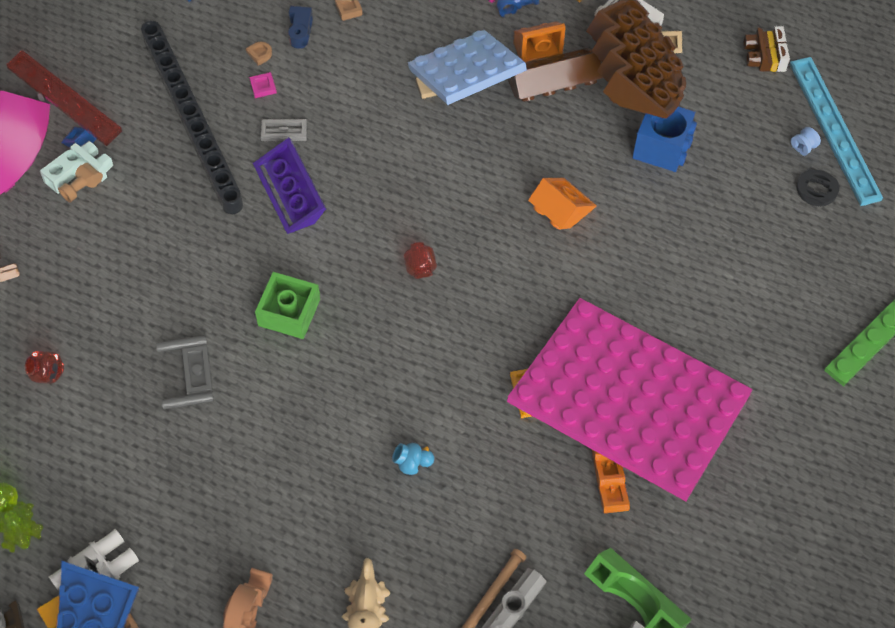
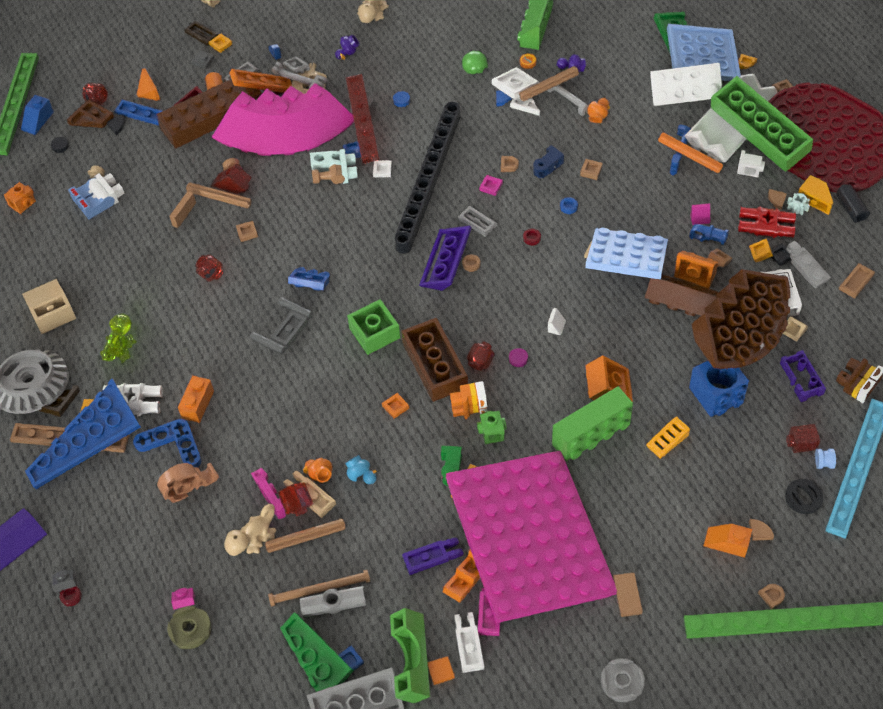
camera: 45 degrees right, 5 degrees down
(44, 301) = (246, 231): none -> medium nougat tile
(80, 54) = (401, 99): none -> blue tile
(131, 139) = (382, 168): none -> white tile
(167, 303) = (311, 278): none -> blue plate
(169, 514) = (196, 399): none -> orange brick
(177, 571) = (172, 435): none -> blue beam
(319, 175) = (471, 263): none -> medium nougat tile
(342, 549) = (268, 492): none -> dark pink hinge
(353, 110) = (531, 237): none -> dark red tile
(359, 57) = (568, 205): none -> blue tile
(371, 490) = (318, 469): none -> orange animal
(381, 294) = (434, 359): none -> reddish brown brick
(382, 369) = (395, 405): none -> orange tile
(382, 535) = (295, 499): none -> clear red brick
(385, 519) = (322, 501): none -> tan hinge
(419, 564) = (305, 535): none -> medium nougat axle
(454, 237) = (518, 357): none -> magenta tile
(456, 308) = (469, 400): none -> orange hips
(458, 179) = (556, 322): none -> white slope
(494, 384) = (452, 457): none -> green leg
(499, 321) = (491, 427): none -> bright green brick
(548, 16) = (721, 257): none -> medium nougat plate
(559, 489) = (431, 555): none -> dark purple hinge
(592, 250) = (592, 424): none -> bright green brick
(661, 202) = (674, 427): none -> light orange slope
(668, 505) = (486, 620): none -> dark pink hinge
(673, 541) = (469, 645): none -> white hinge
(673, 586) = (440, 670): none -> orange tile
(713, 67) = (814, 379): none -> dark purple piece
(762, 386) = (627, 594): none -> medium nougat tile
(773, 135) = (803, 438): none -> clear red brick
(798, 270) = (728, 539): none -> orange slope
(812, 244) = (760, 530): none -> medium nougat tile
(831, 473) = (622, 680): none -> light grey tile
(875, 293) = (772, 595): none -> medium nougat tile

